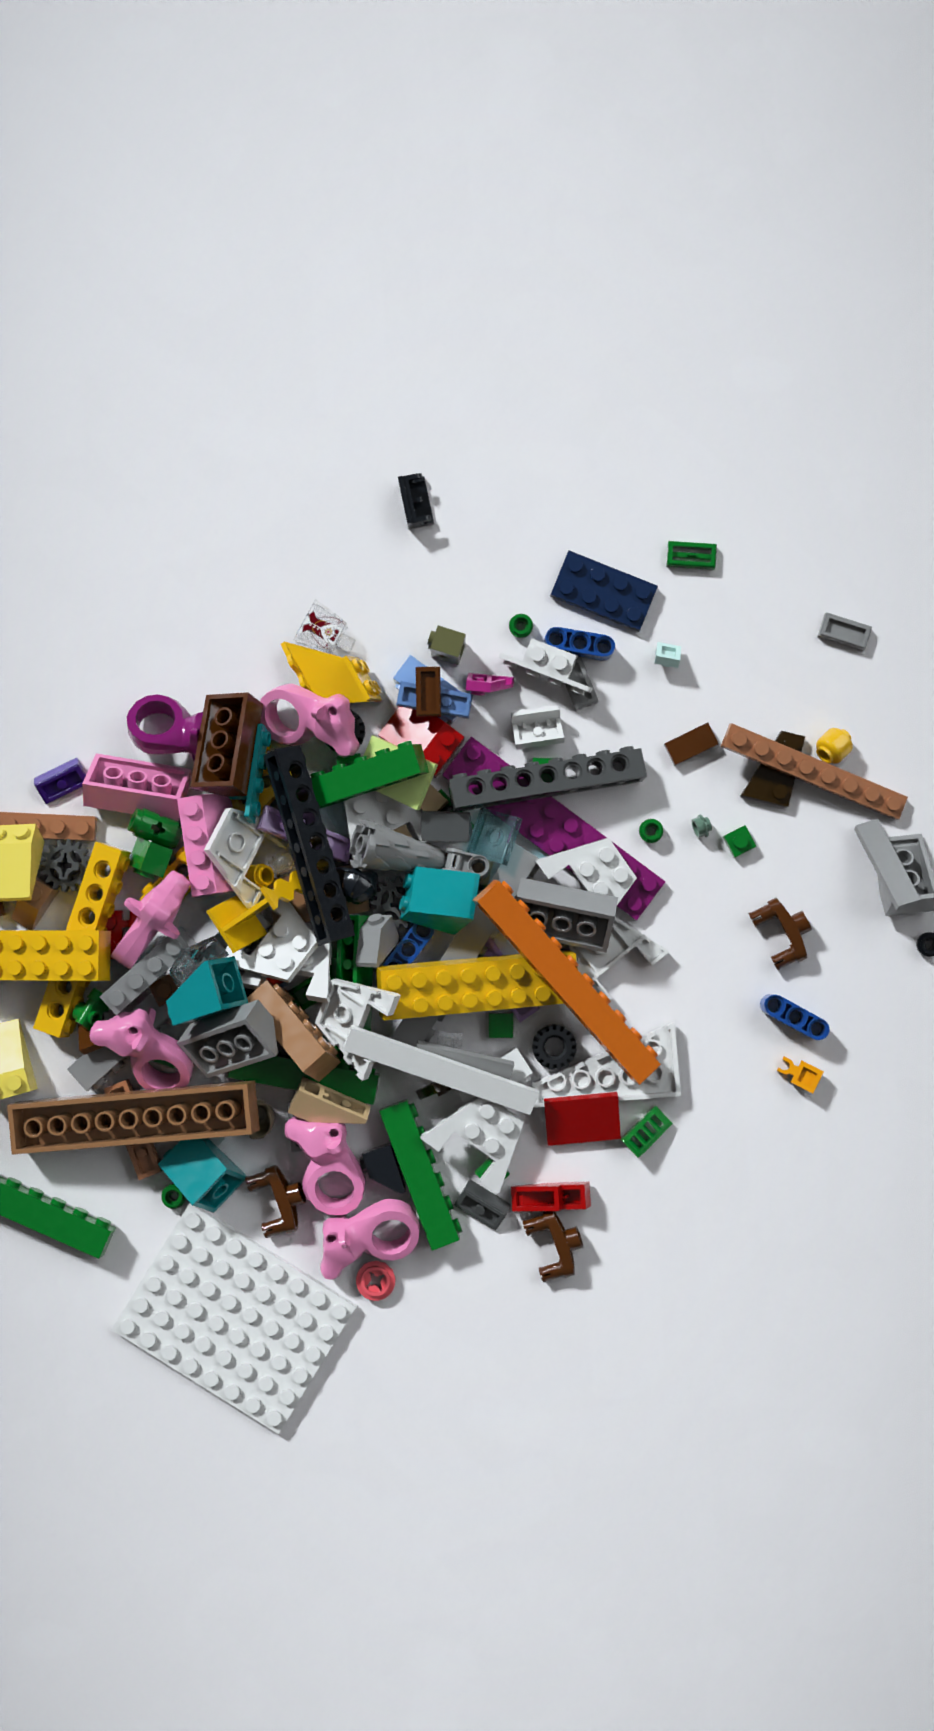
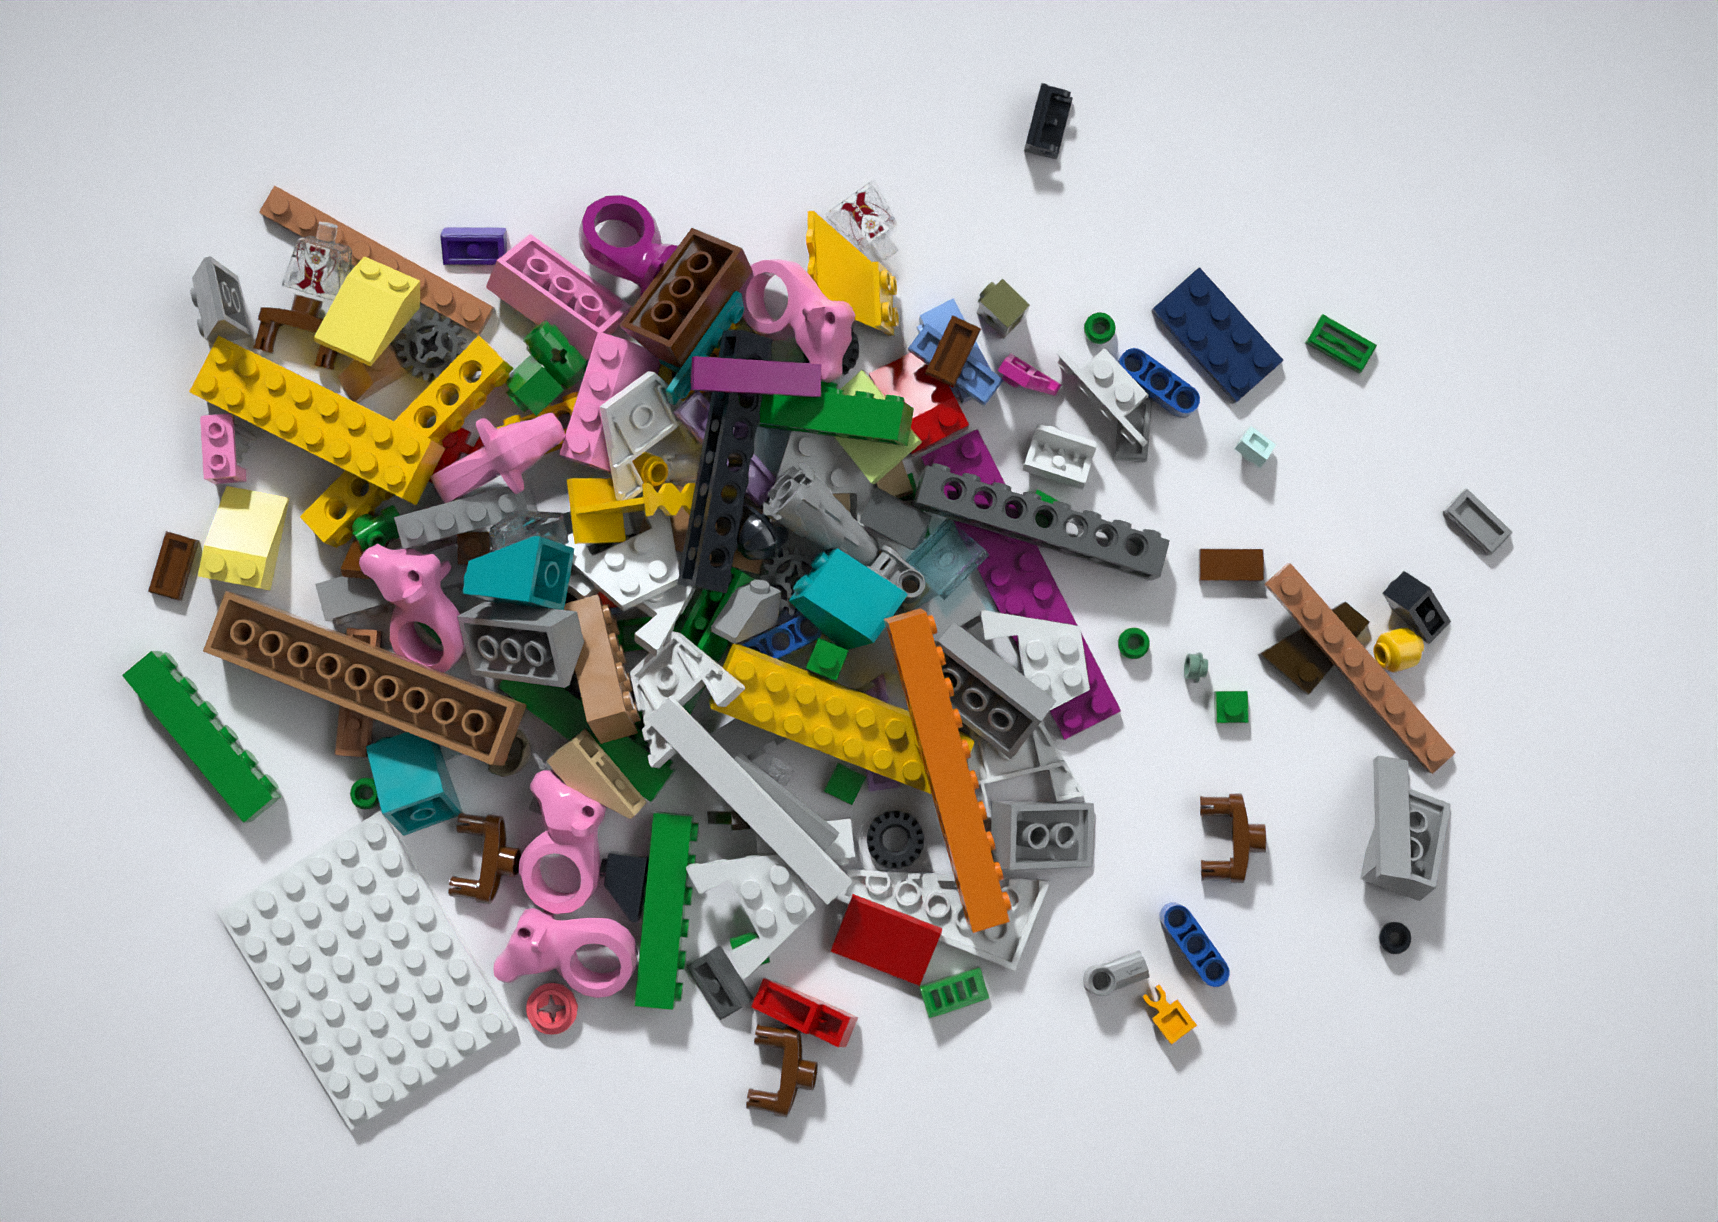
camera: 25 degrees right, 0 degrees up
(301, 776) = (756, 377): none -> magenta tile
(447, 946) = (827, 659): none -> green brick
(653, 993) = (1042, 834): none -> light grey slope
(753, 1062) = (1119, 973): none -> light grey piece
(832, 709) = (1417, 606): none -> black slope

